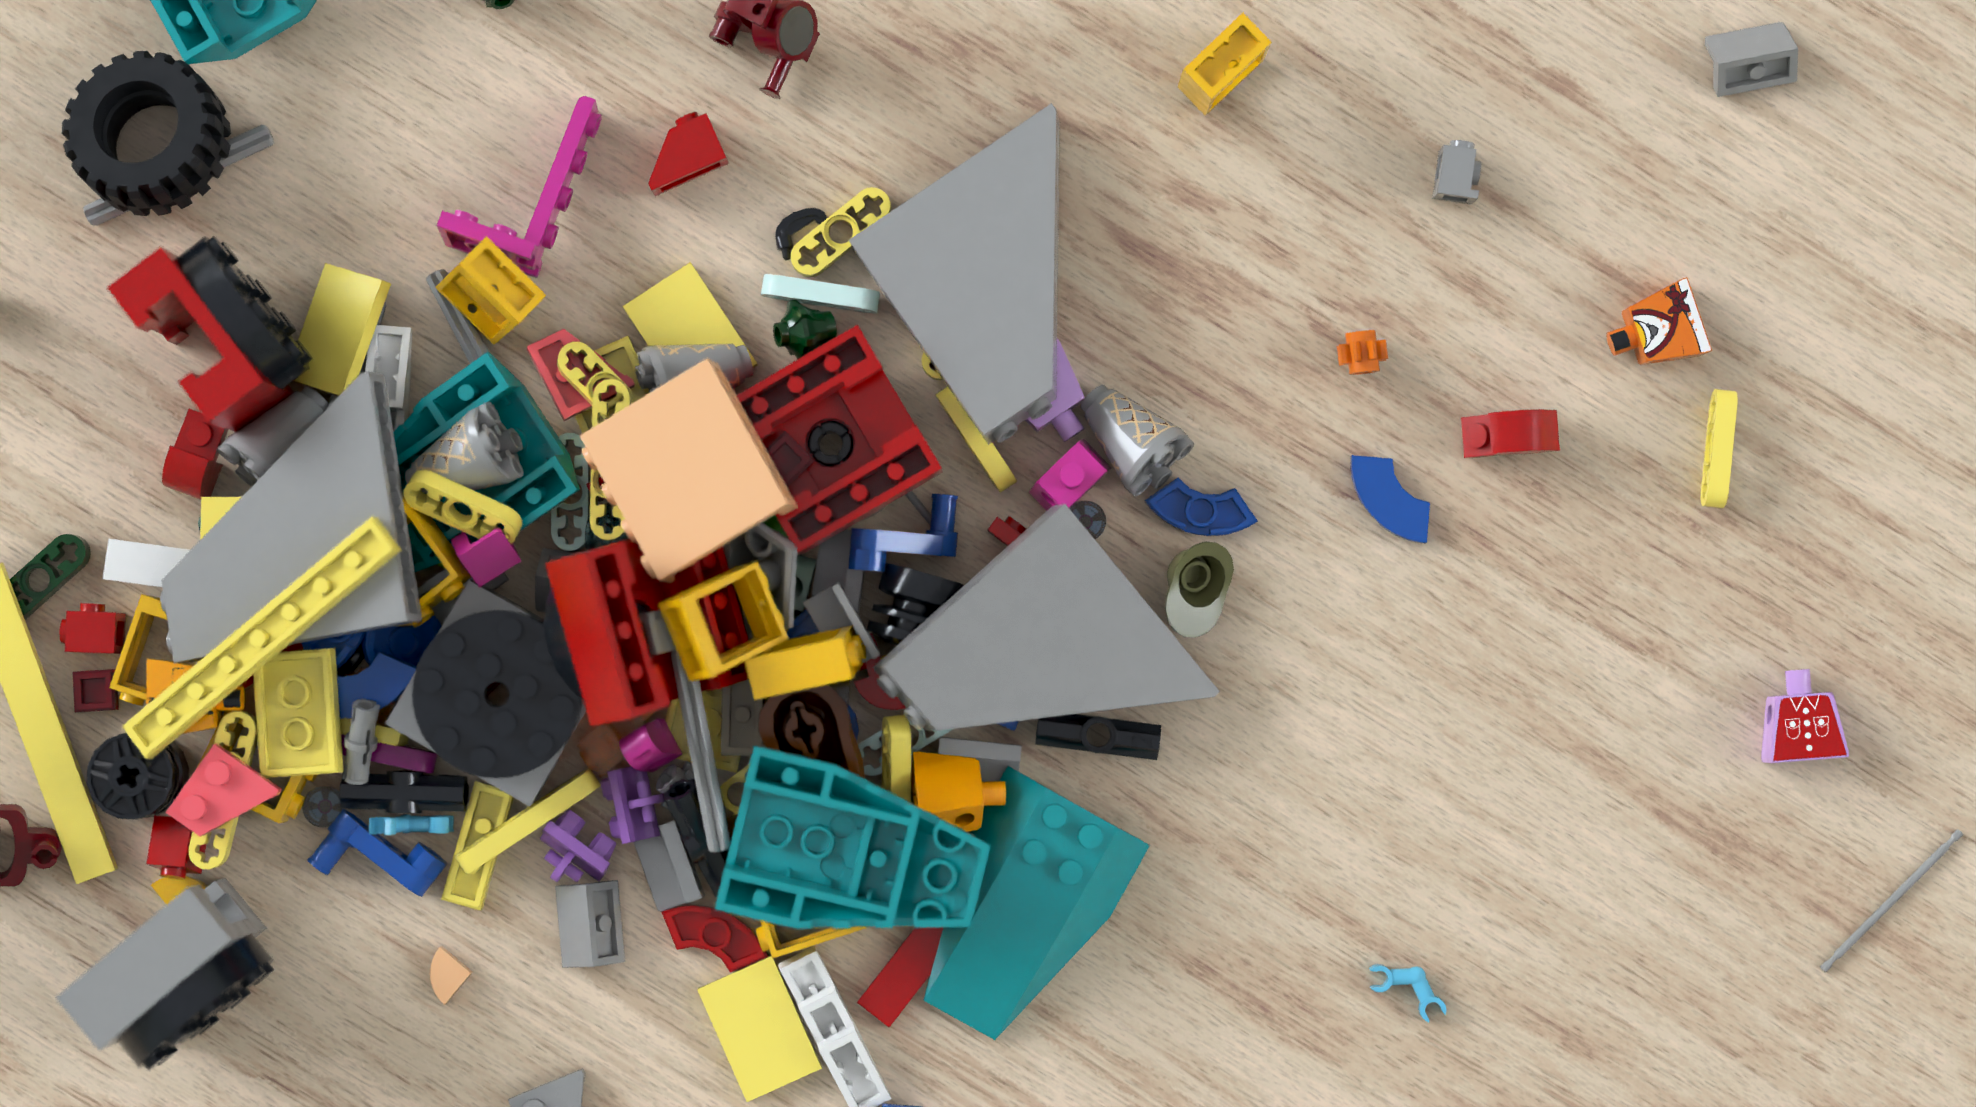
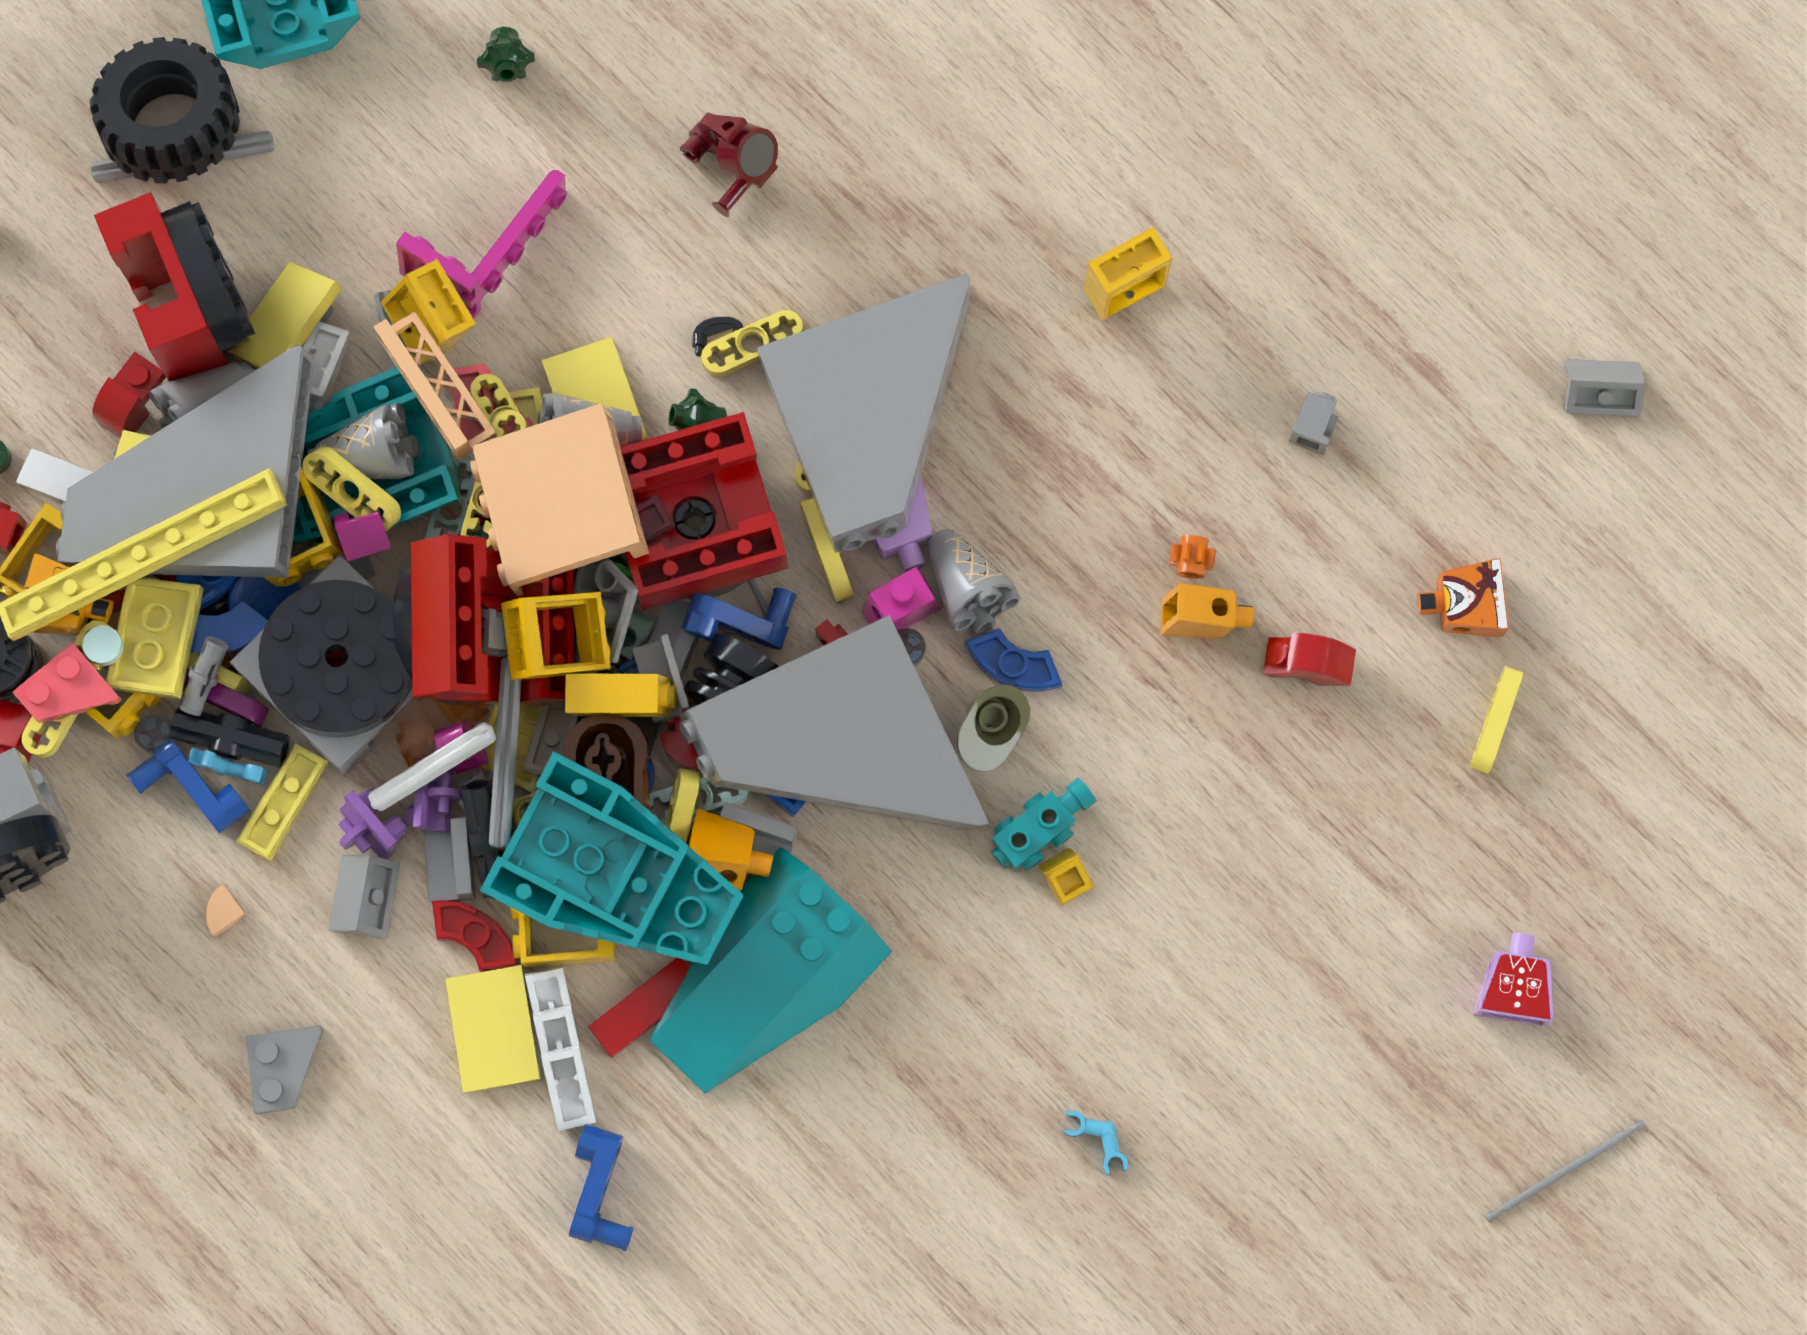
camera: 15 degrees right, 10 degrees down
(246, 738) = (103, 645): none -> light aqua tile
(504, 378) = (422, 386): none -> light nougat fence
(527, 820) = (331, 787): light yellow beam -> none
(627, 780) = (432, 766): none -> white axle
(687, 153) = (633, 243): red slope -> none
(820, 293) = (720, 390): light aqua beam -> none
(1125, 738) = (893, 847): black piece -> none
(1264, 683) = (1035, 830): none -> teal brick
(1309, 721) = (1066, 875): none -> yellow slope
(1387, 500) = (1184, 695): blue tile -> none
(1388, 411) = (1202, 612): none -> light orange torso

